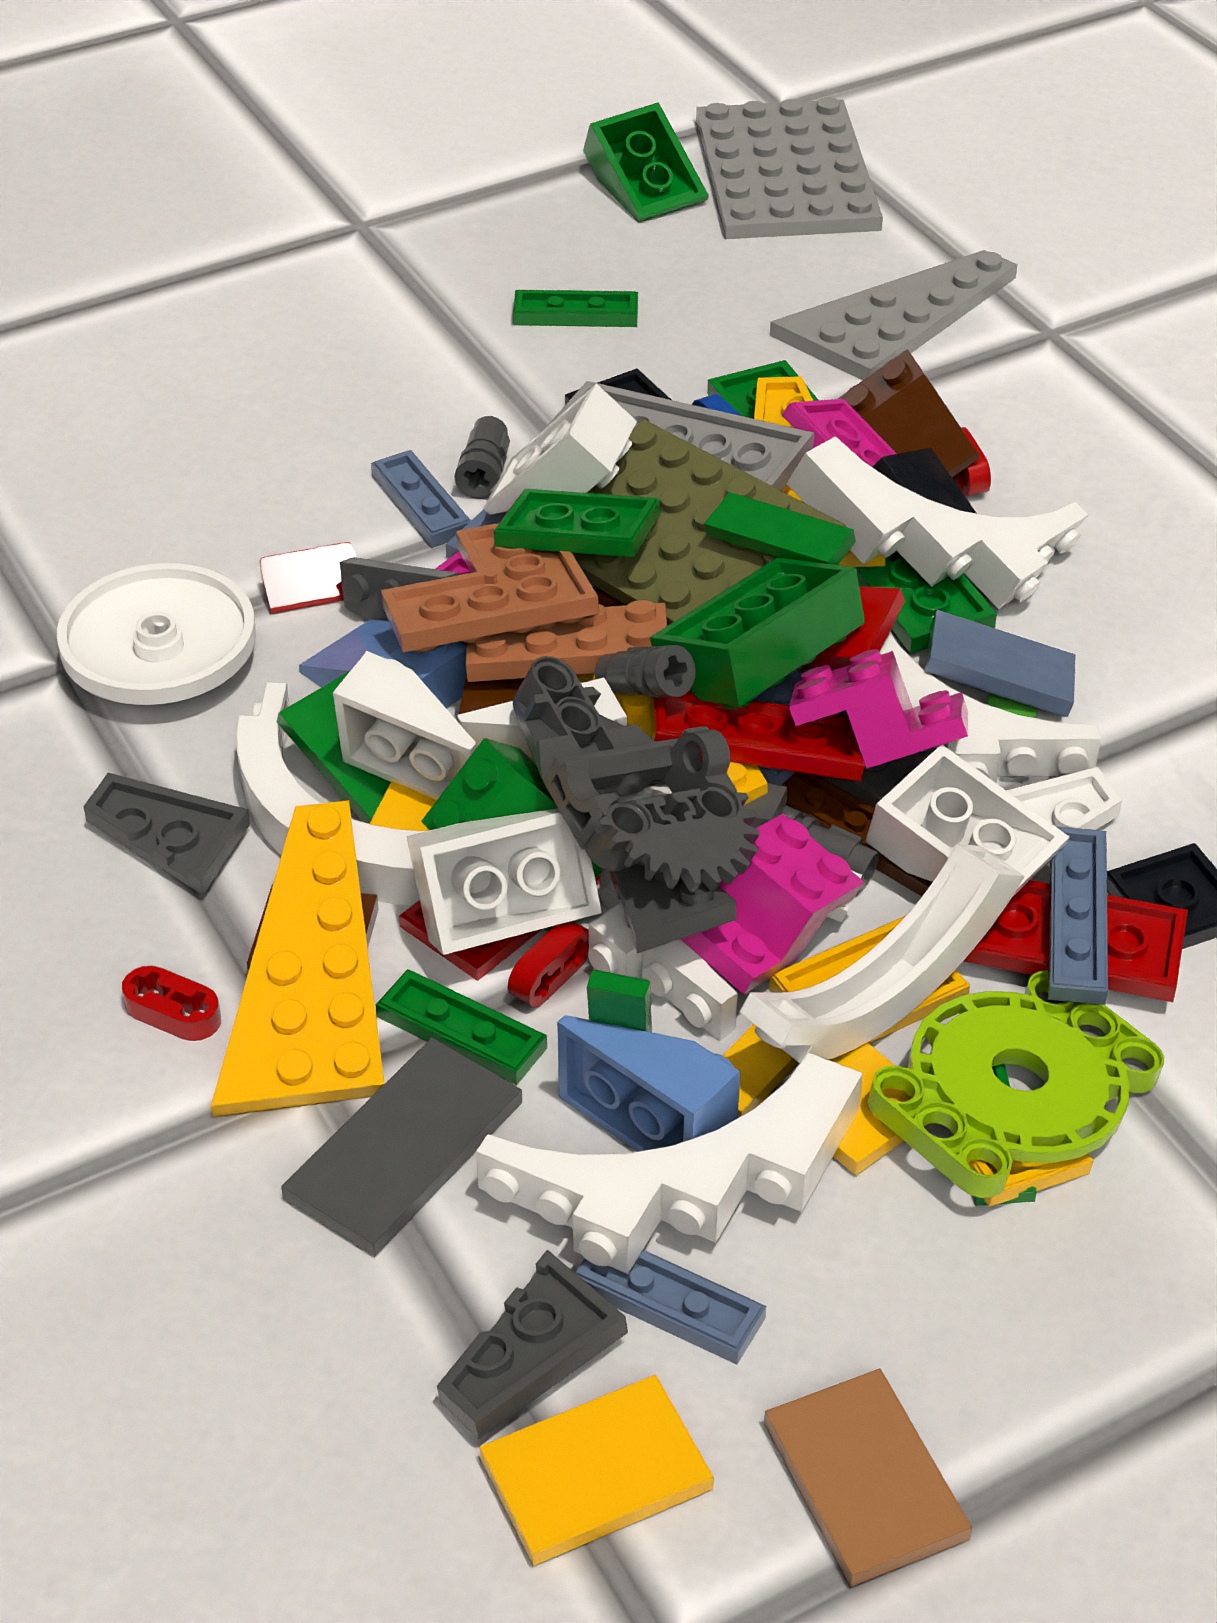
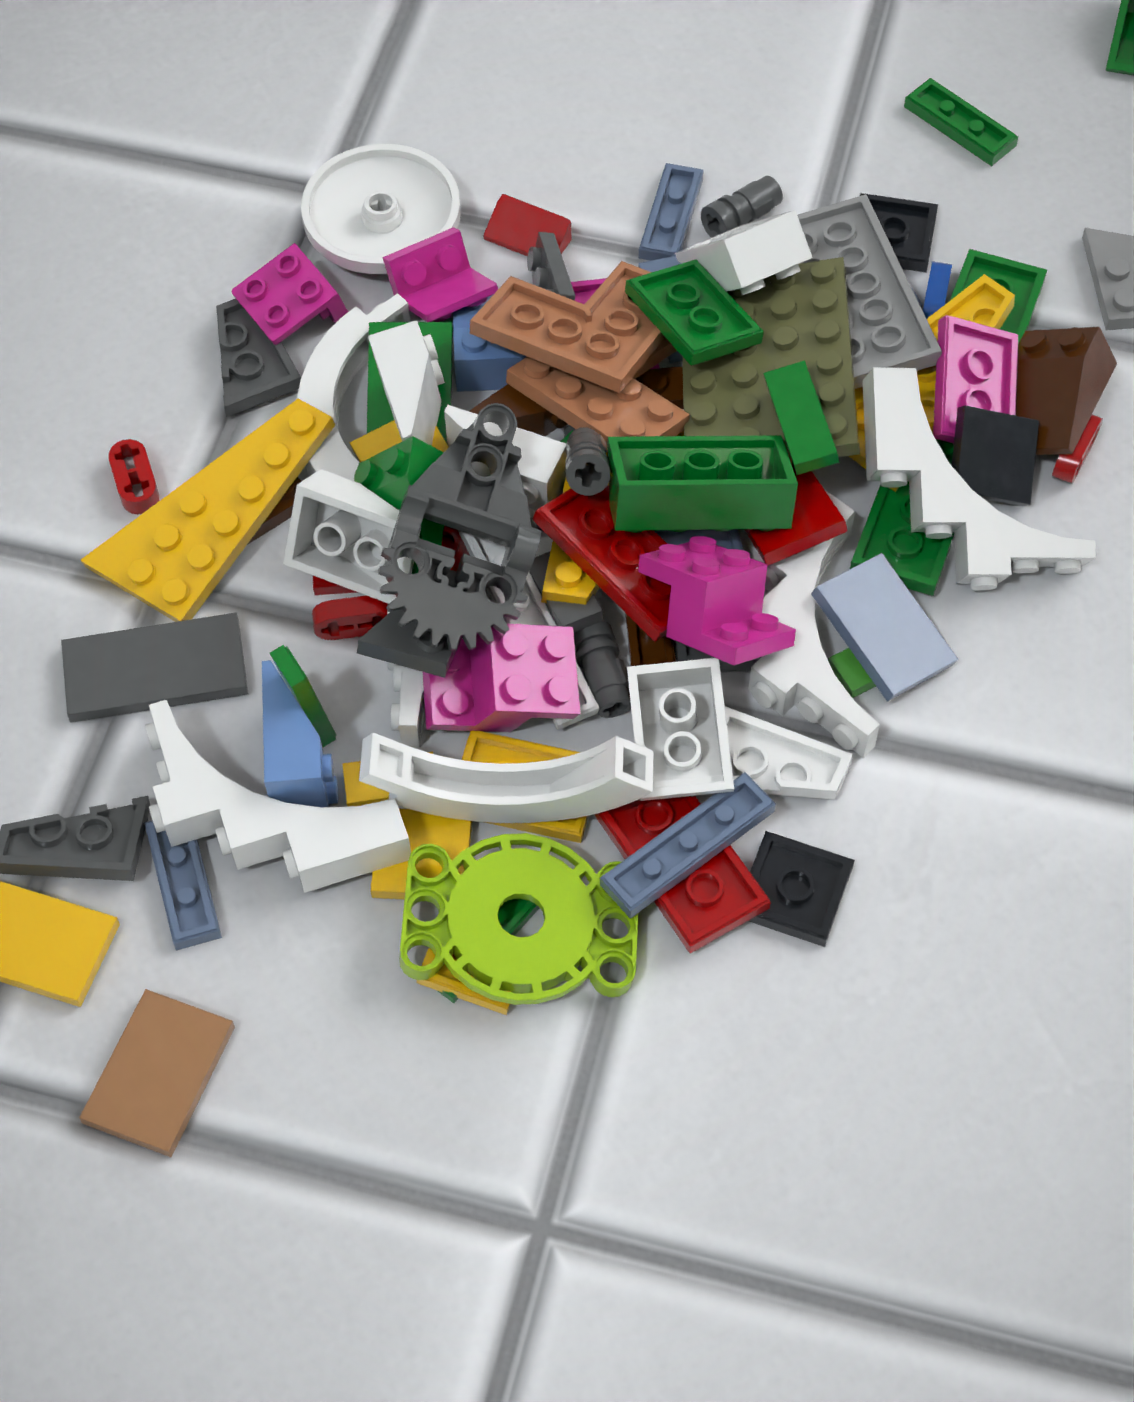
camera: 45 degrees right, 15 degrees up
(155, 749) = (288, 295): none -> dark pink bracket
(276, 652) = (437, 277): none -> dark pink bracket
(463, 1025) = (265, 610): green tile -> none

